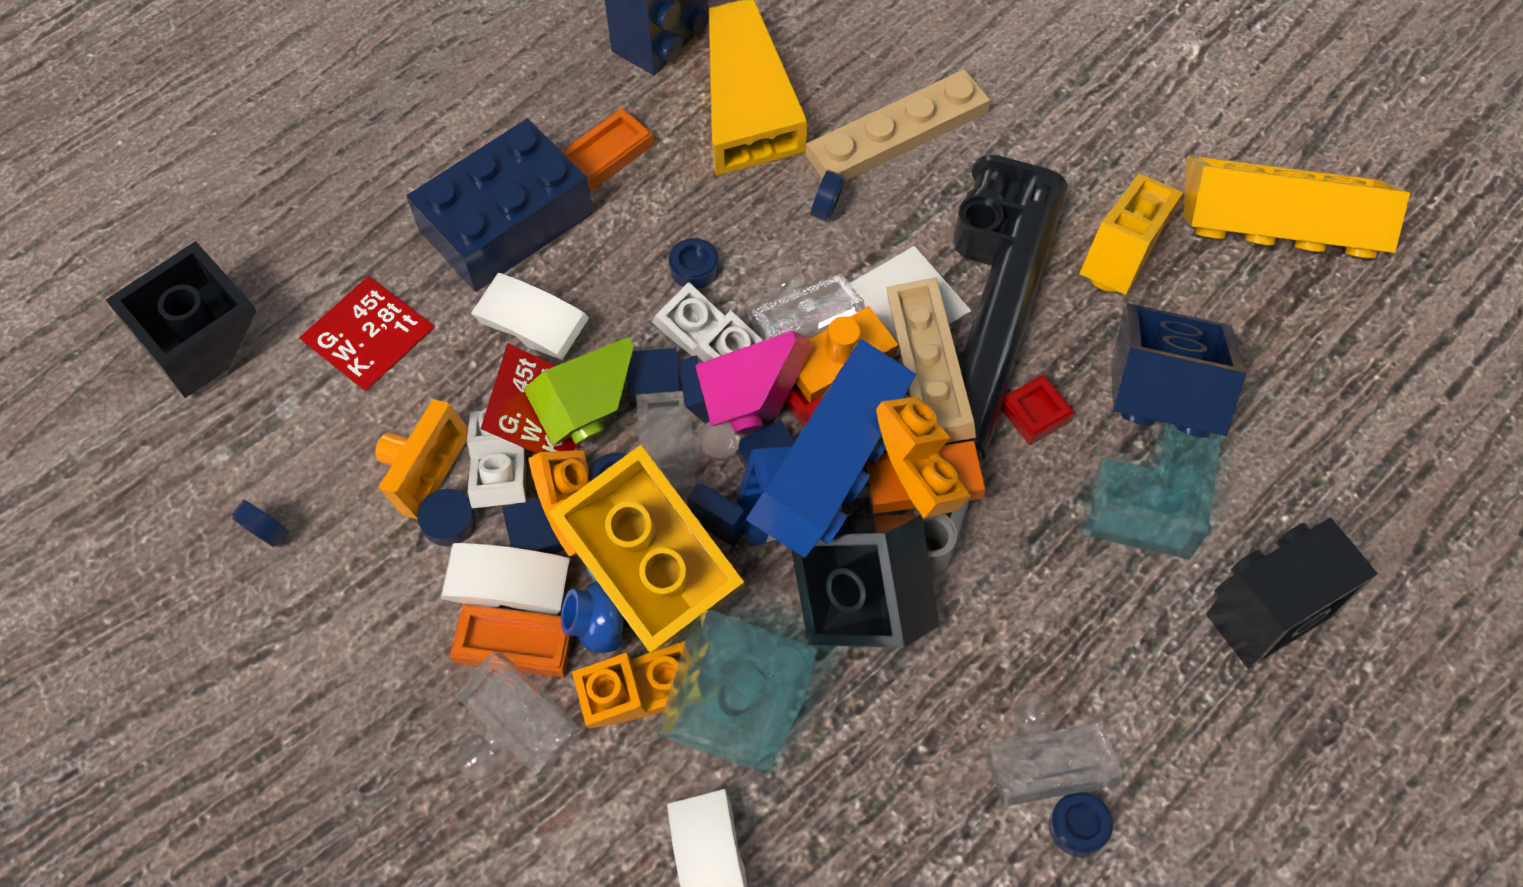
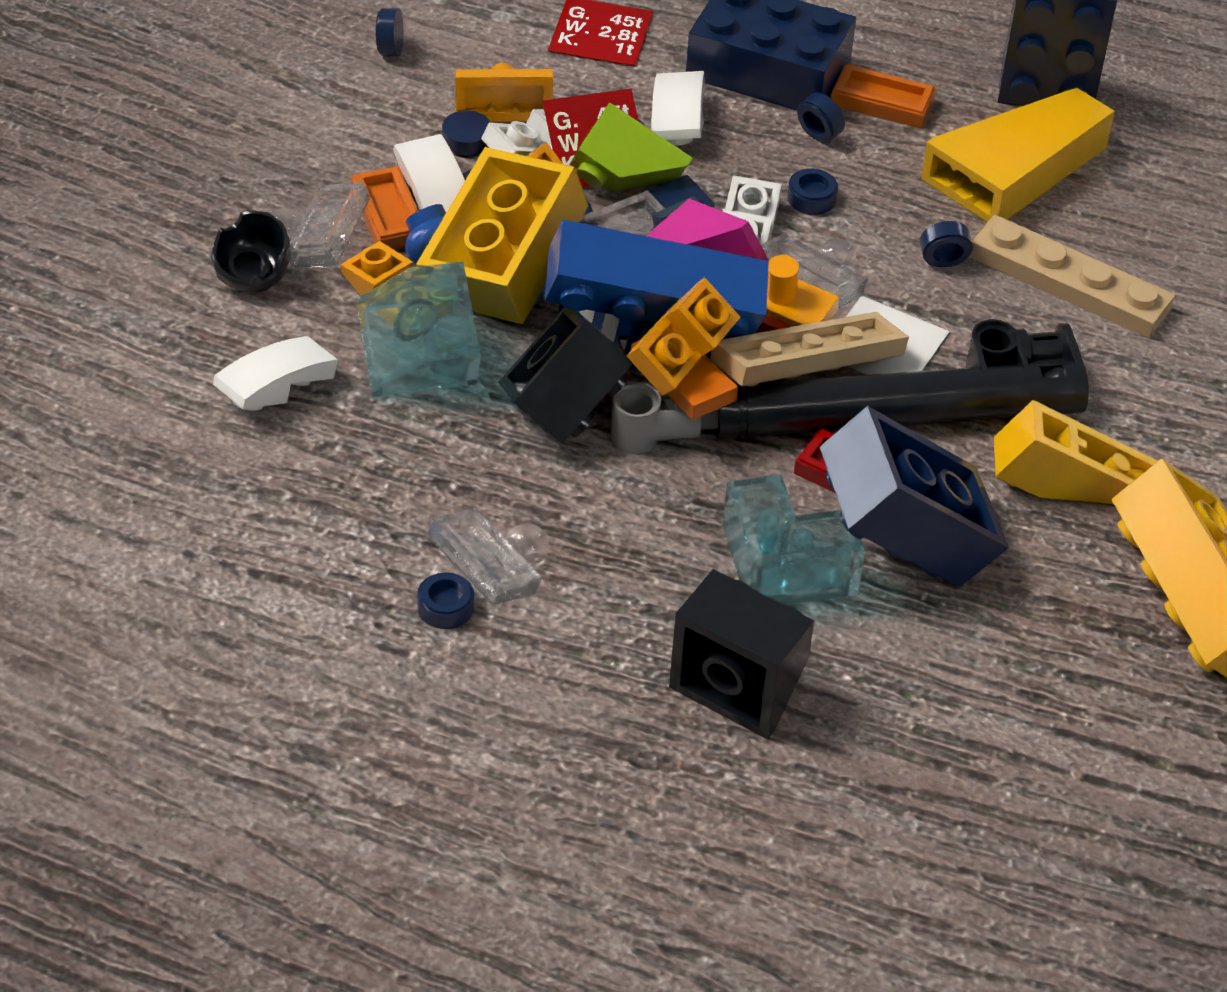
camera: 60 degrees right, 15 degrees down
(526, 812) = (252, 252): none -> black hair
(614, 210) = (820, 117): none -> dark blue tile

